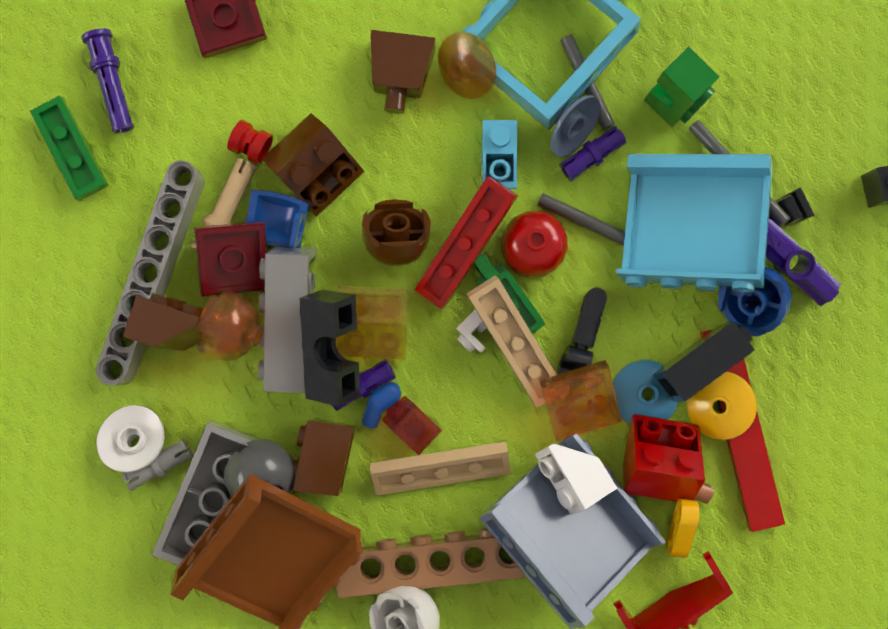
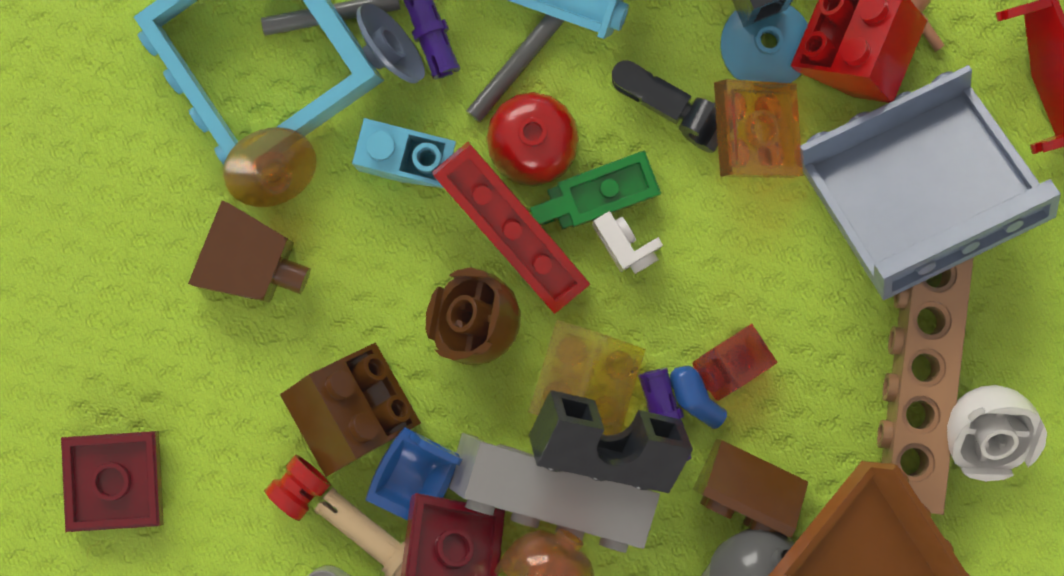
camera: 80 degrees left, 0 degrees up
(440, 468) = (802, 337): tan plate -> none
(512, 336) = (653, 197): tan plate -> none
(575, 476) = (859, 159): white slope -> none
(682, 528) = (956, 39): yellow beam -> none

